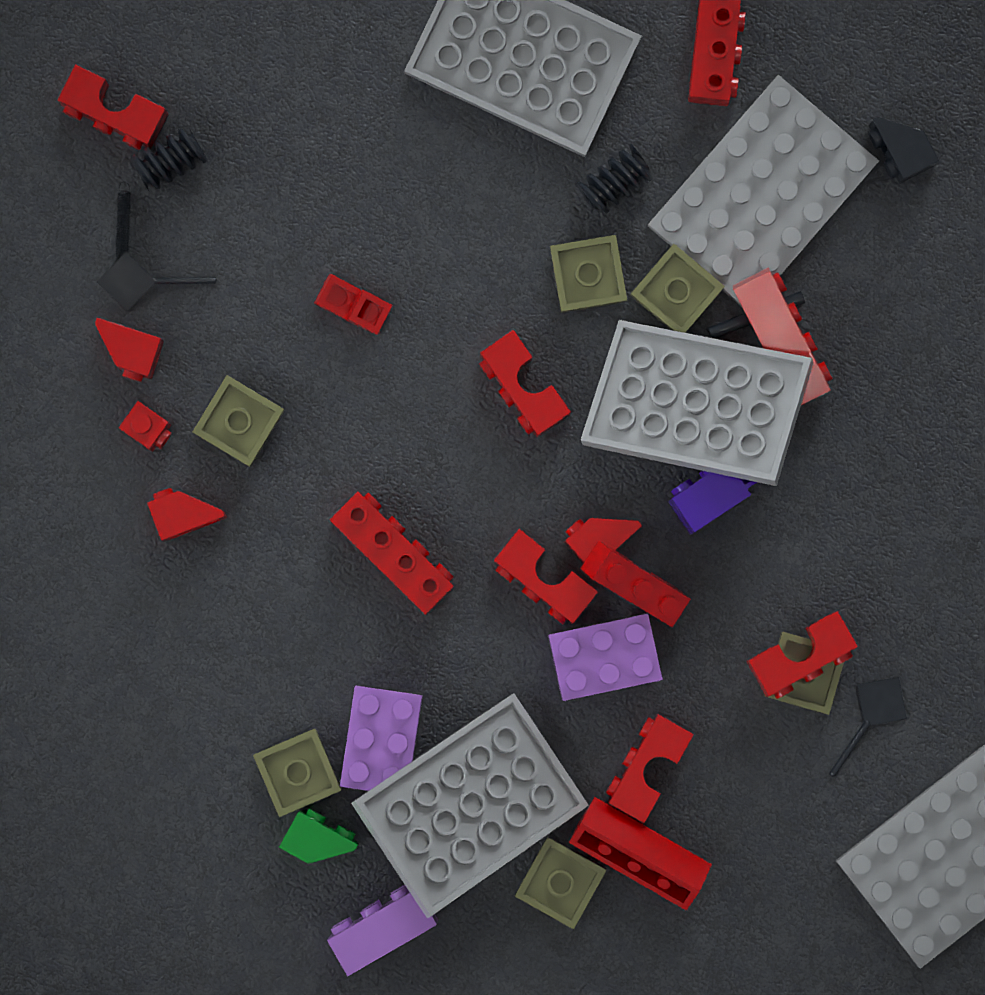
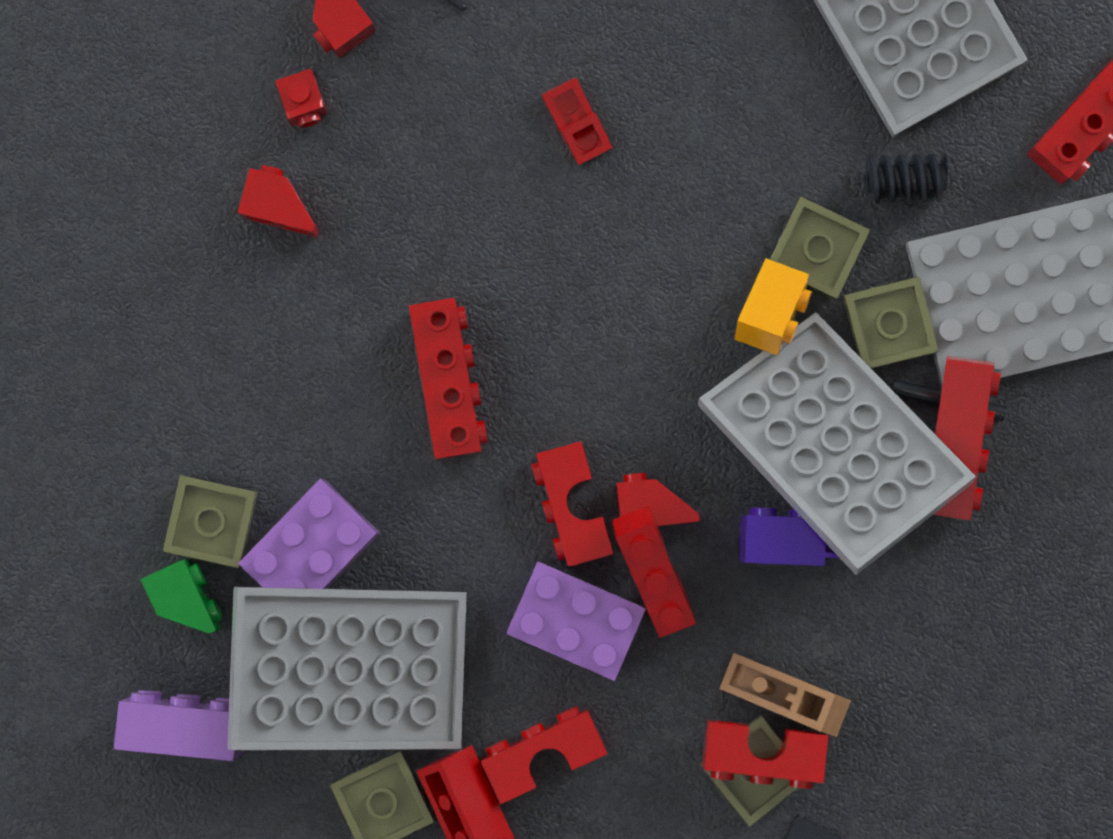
camera: 35 degrees right, 0 degrees up
(238, 421) = (391, 153): olive plate -> none
(537, 410) = (679, 343): red arch -> none
(586, 338) = (772, 306): none -> light orange brick
(788, 604) = (785, 695): none -> medium nougat slope

